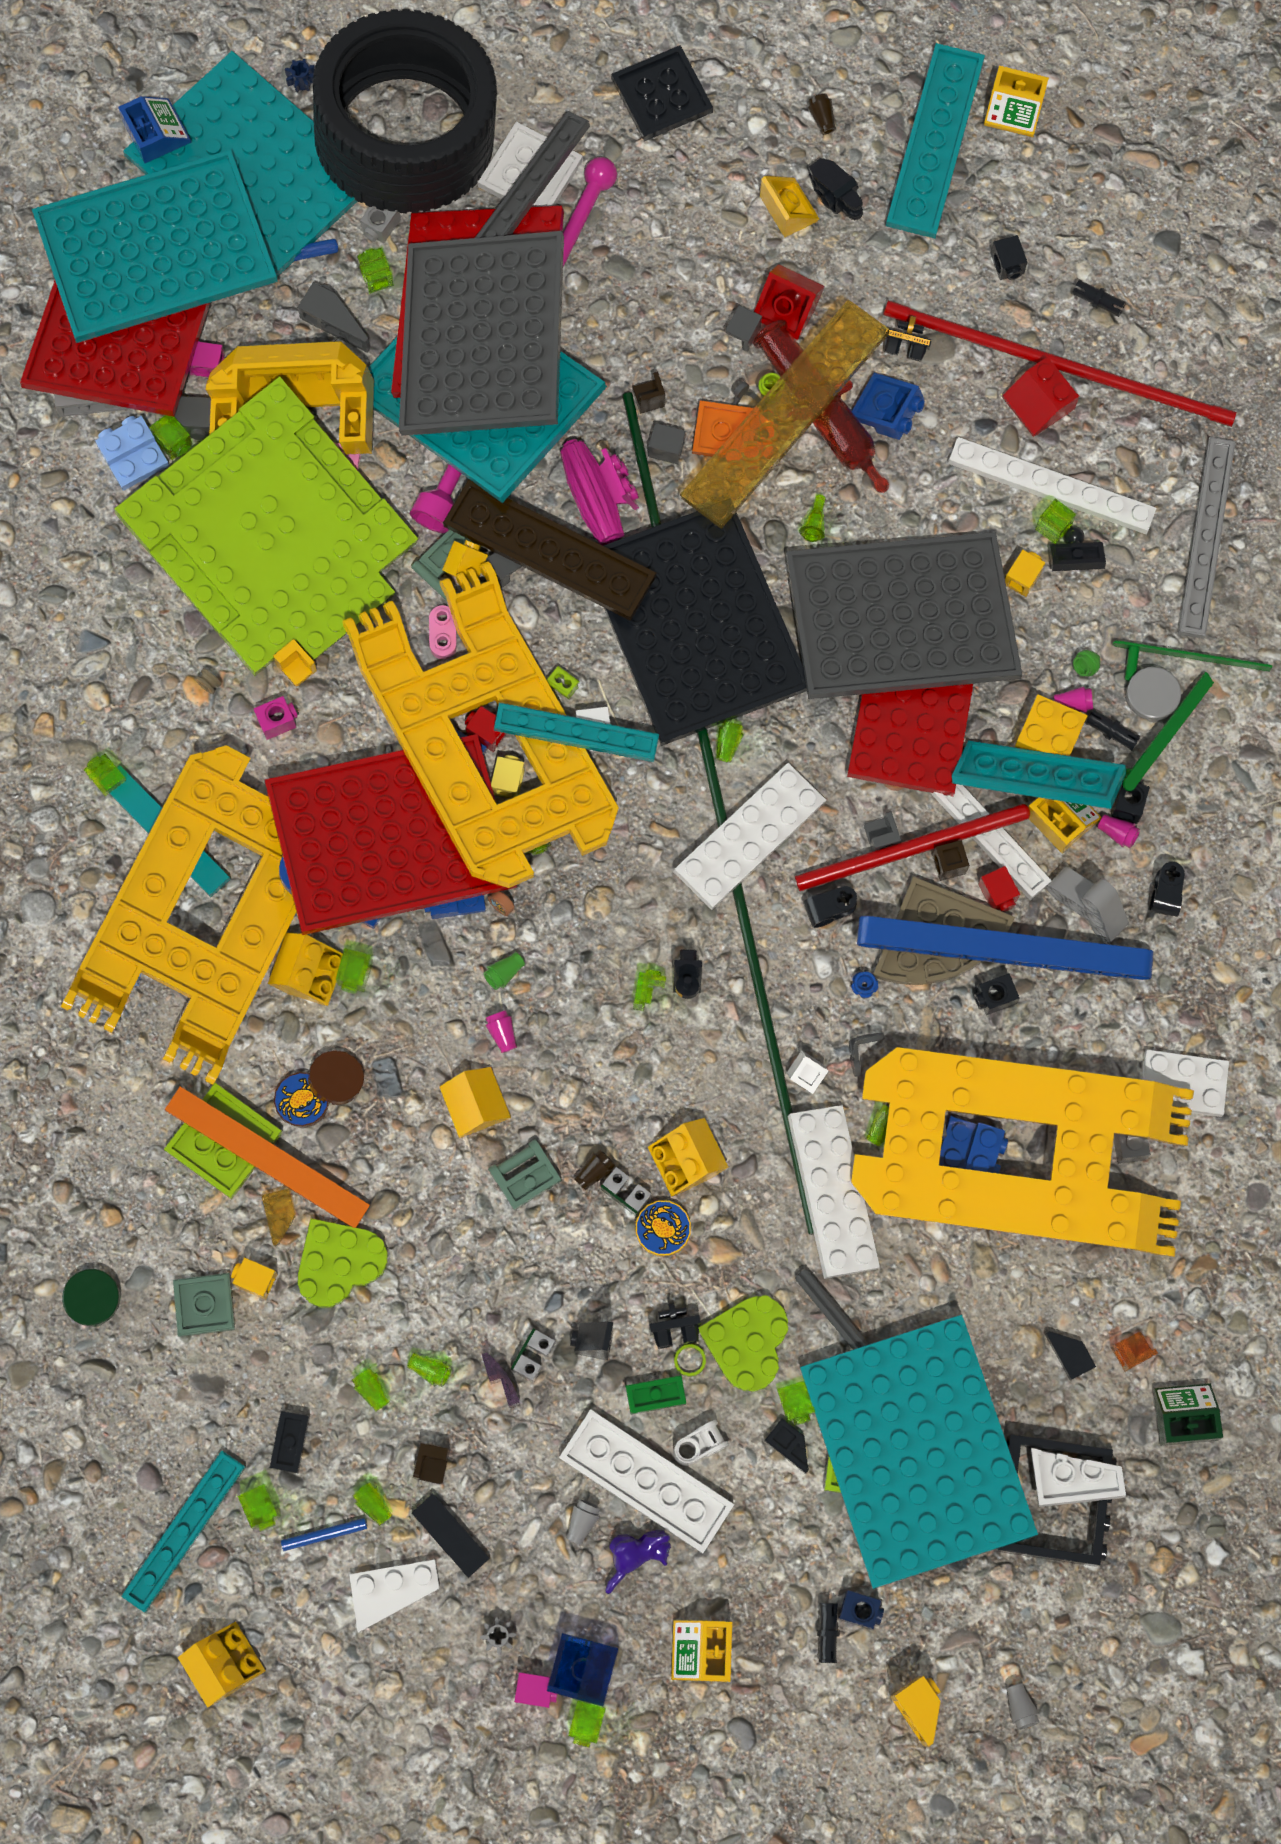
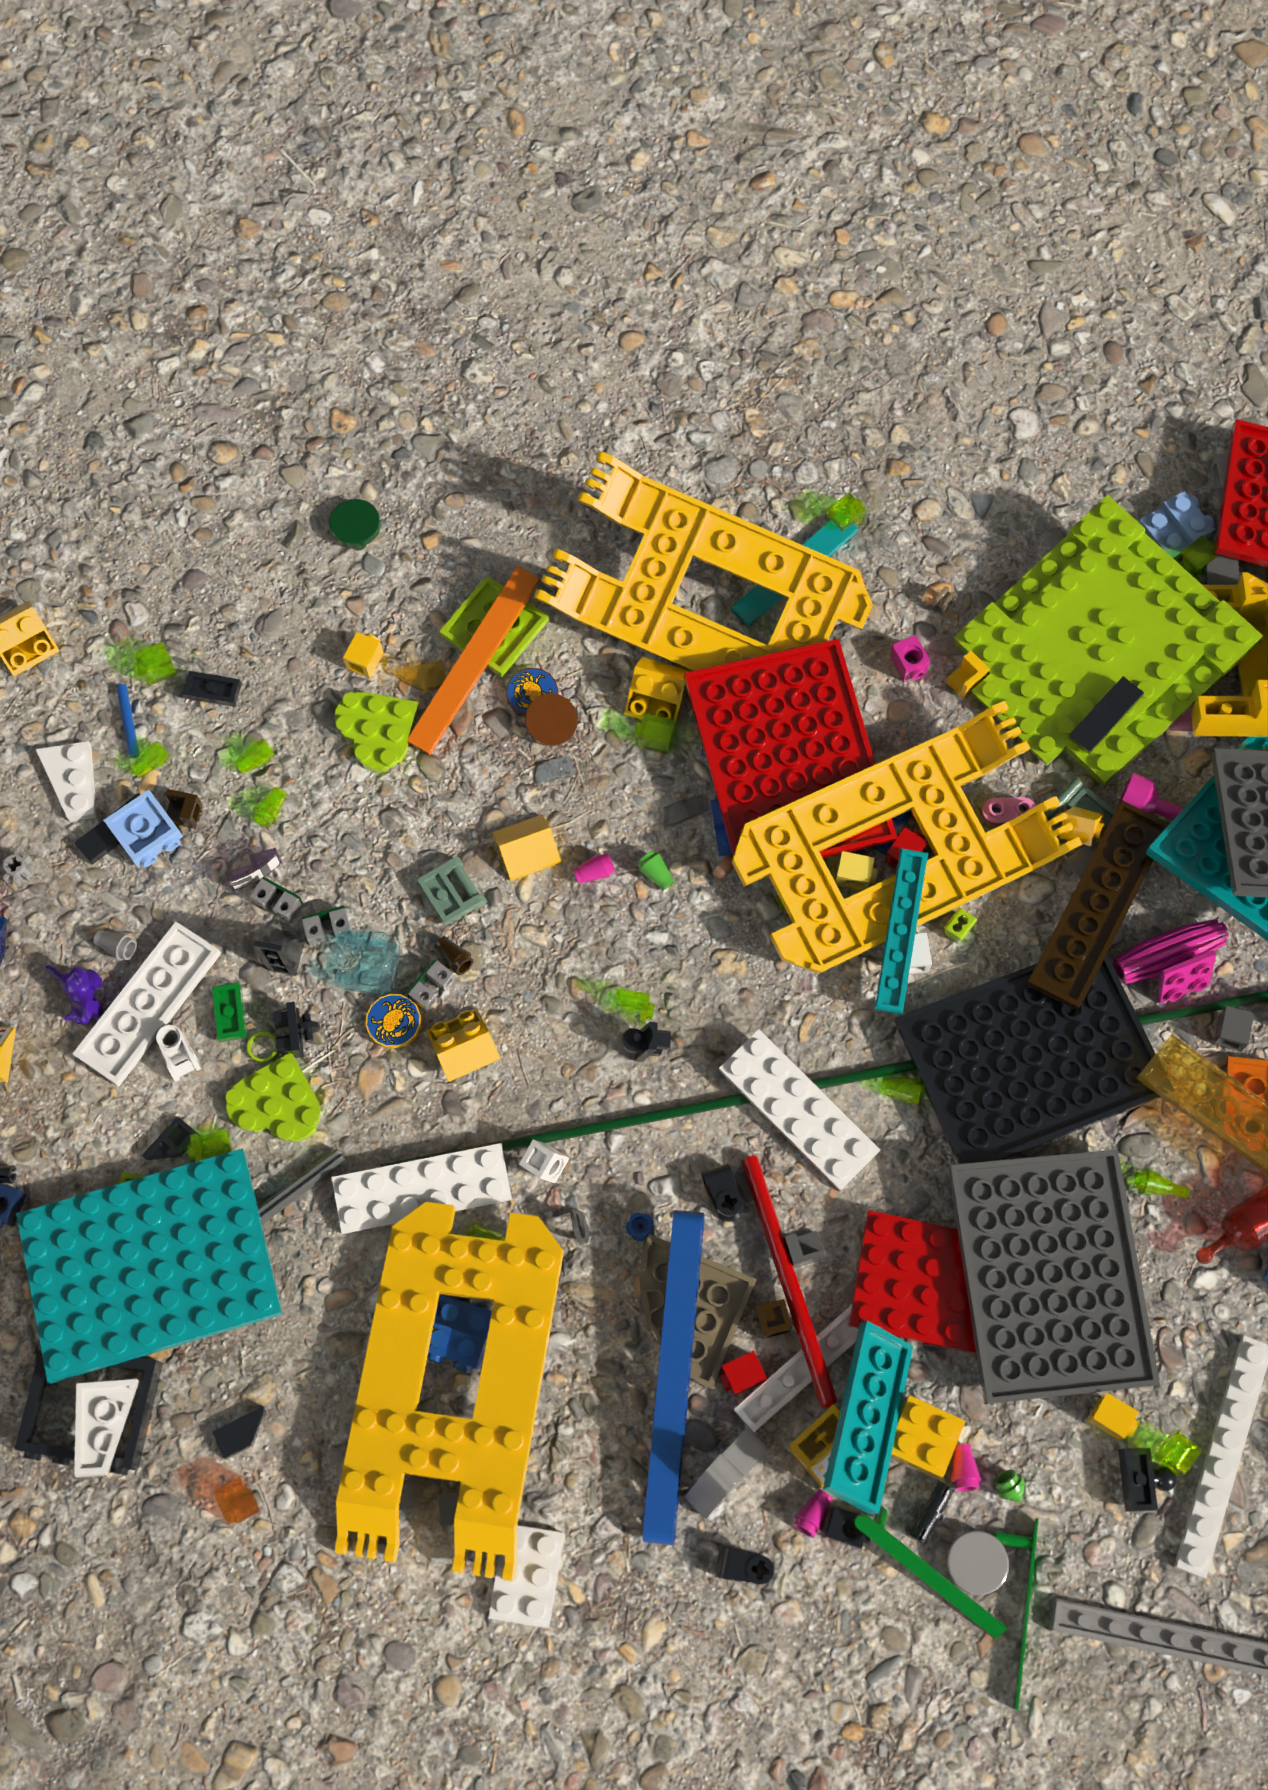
camera: 95 degrees right, 5 degrees down
(183, 1532) = (143, 606): teal tile -> none
(204, 1305) = (343, 615): sand green tile -> none
(353, 529) = (1106, 715): none -> black tile
(456, 1499) = (144, 829): none -> light blue plate
(554, 1292) = (313, 923): none -> flat silver piece
(607, 1245) = (377, 964): none -> clear light blue piece
(1005, 986) = (626, 1379): black brick -> none
(1187, 1414) = (162, 1555): dark green slope -> none

